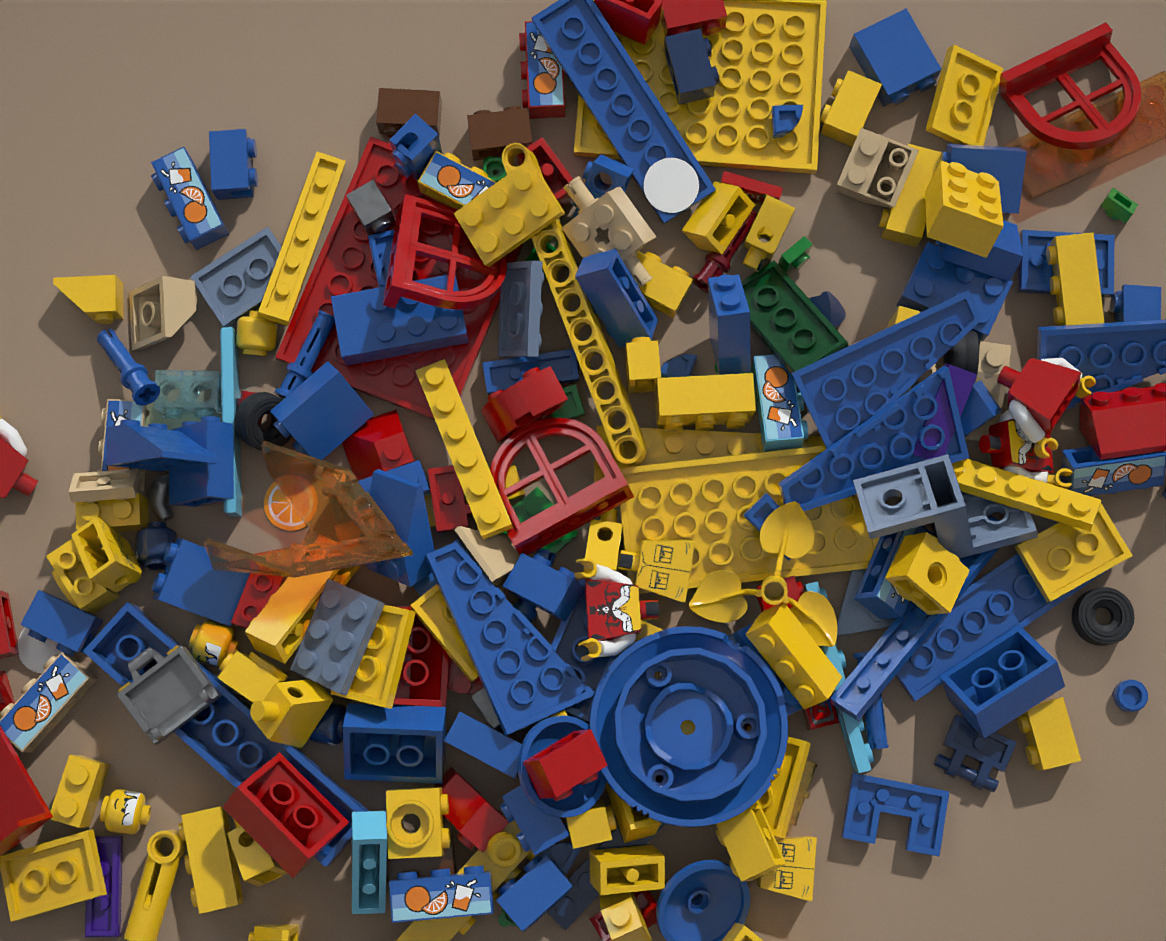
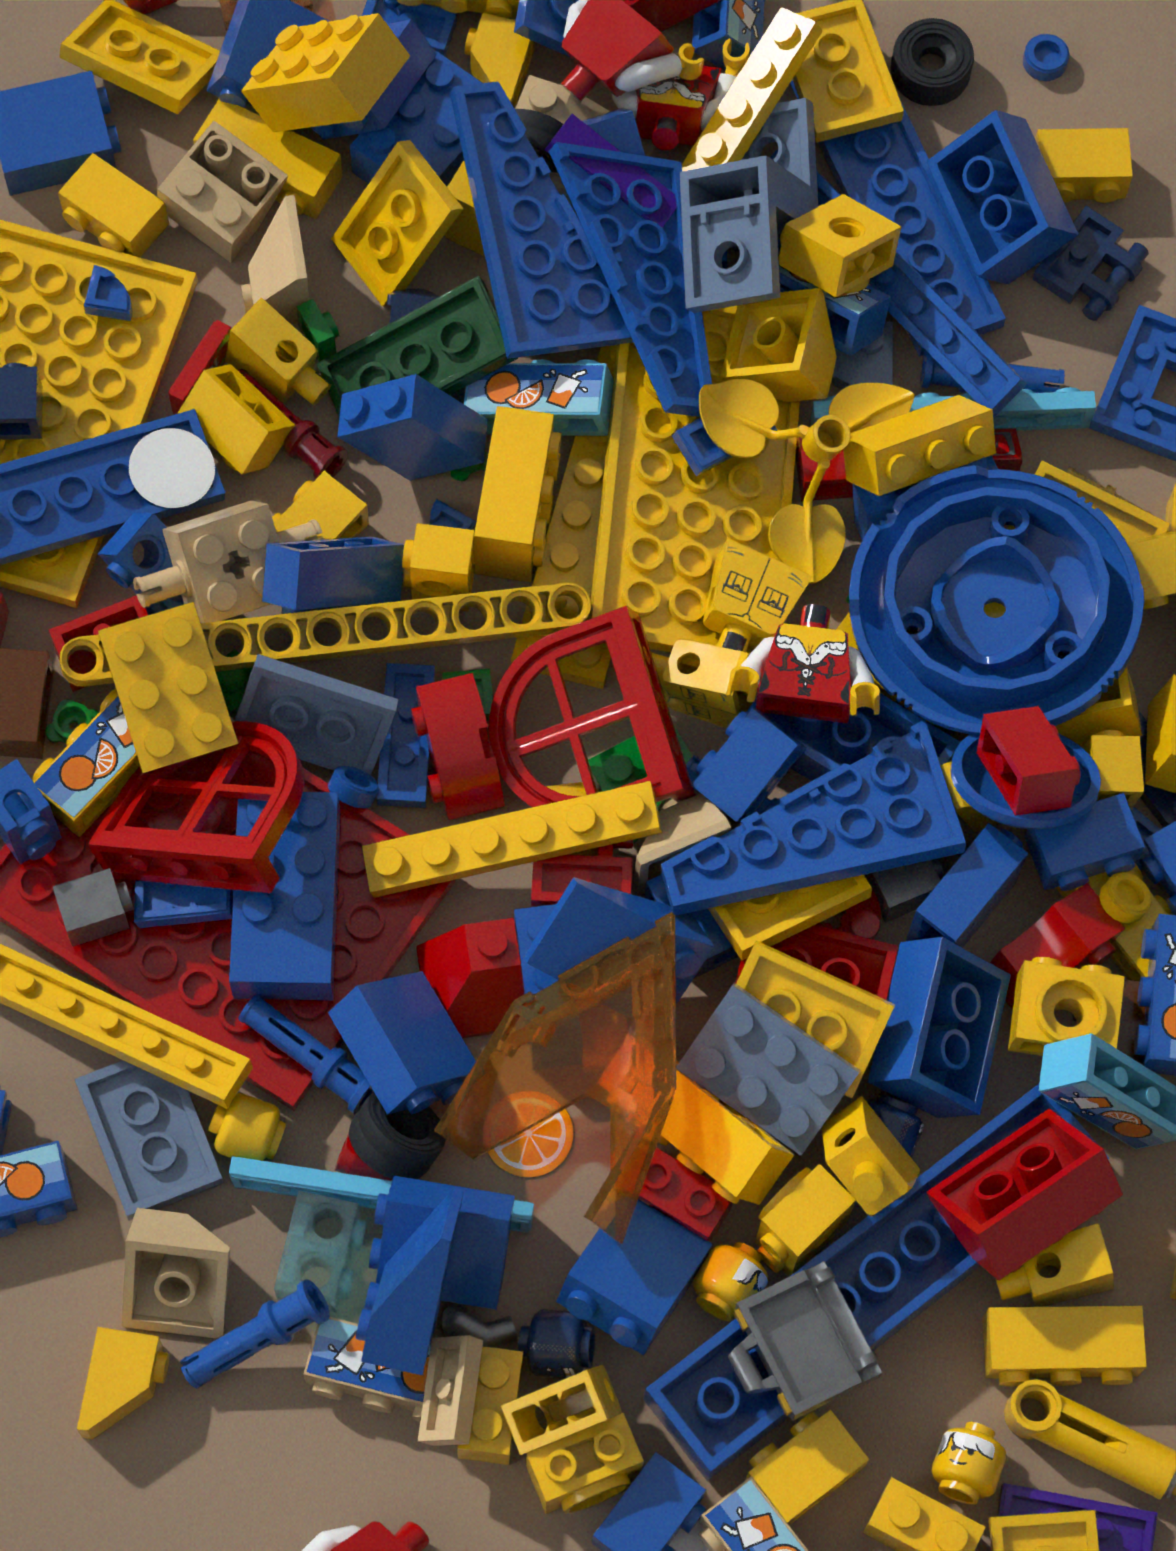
camera: 80 degrees left, 10 degrees down
(103, 711) = (808, 1465): none -> yellow brick
(486, 346) = (354, 786): none -> blue tile
(830, 220) = (279, 266): none -> tan slope
(847, 553) = (783, 346): none -> yellow slope
(878, 283) = (396, 222): none -> yellow plate
(1022, 325) = (499, 54): none -> yellow slope

